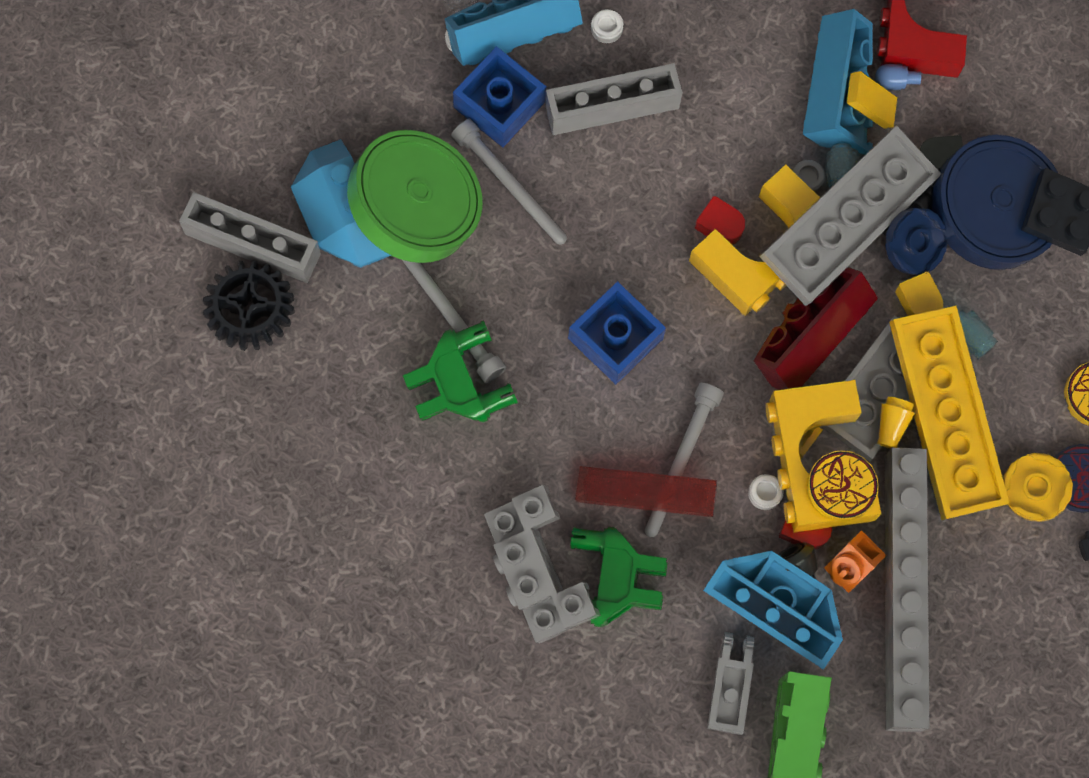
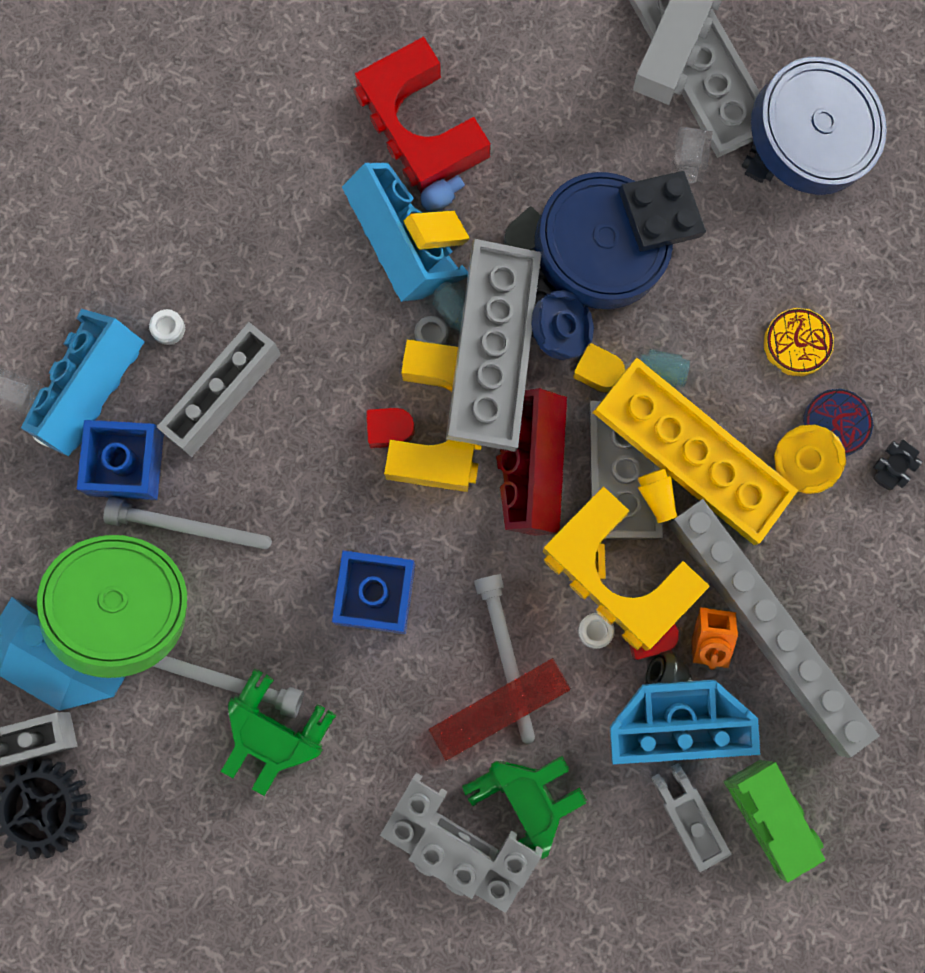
camera: 30 degrees left, 5 degrees up
(842, 485) = (662, 588): tile -> none

